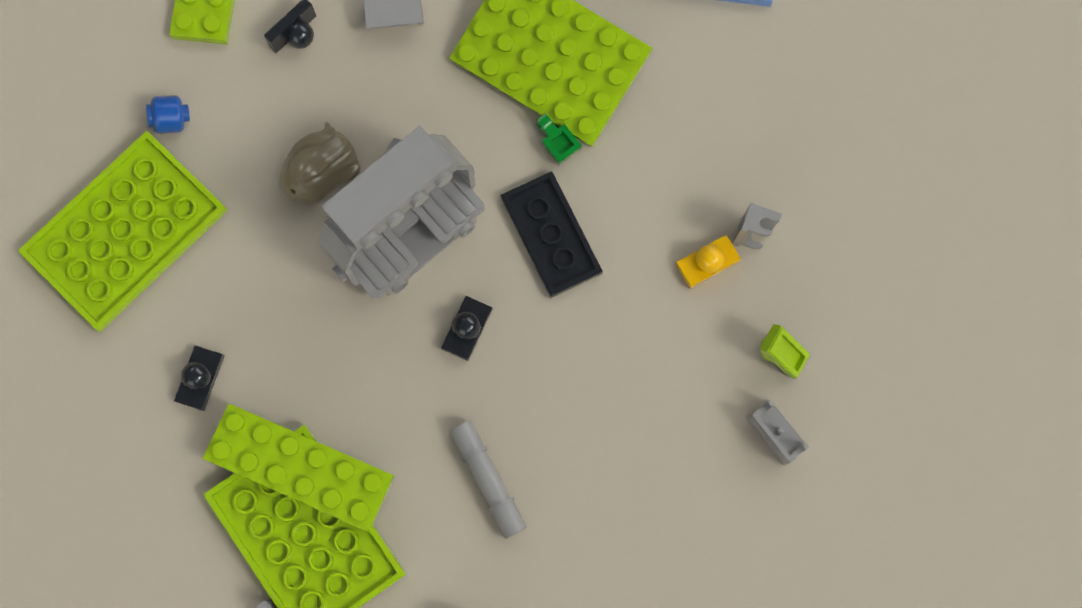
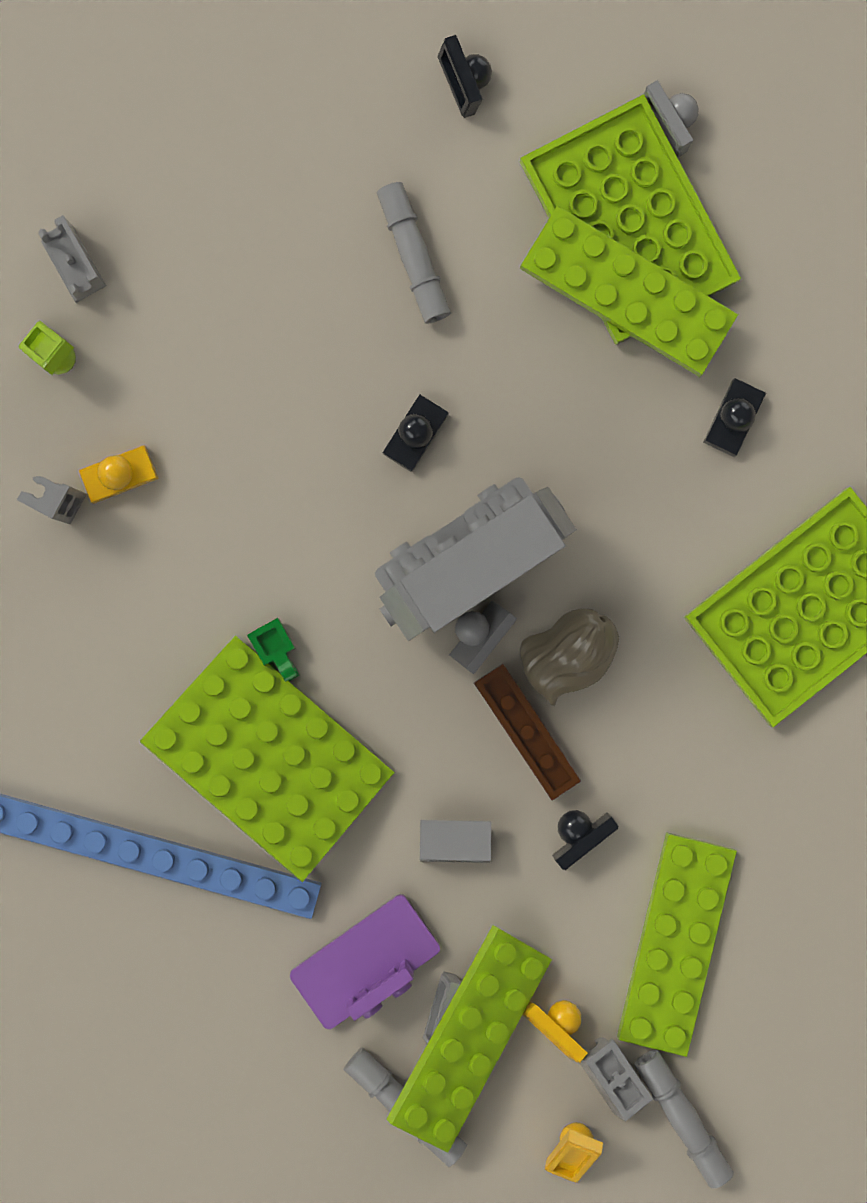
camera: 175 degrees left, 10 degrees up
(167, 114) = (746, 744): blue head -> none
(346, 102) = (527, 732): none -> reddish brown plate
(551, 234) = (300, 534): black tile -> none

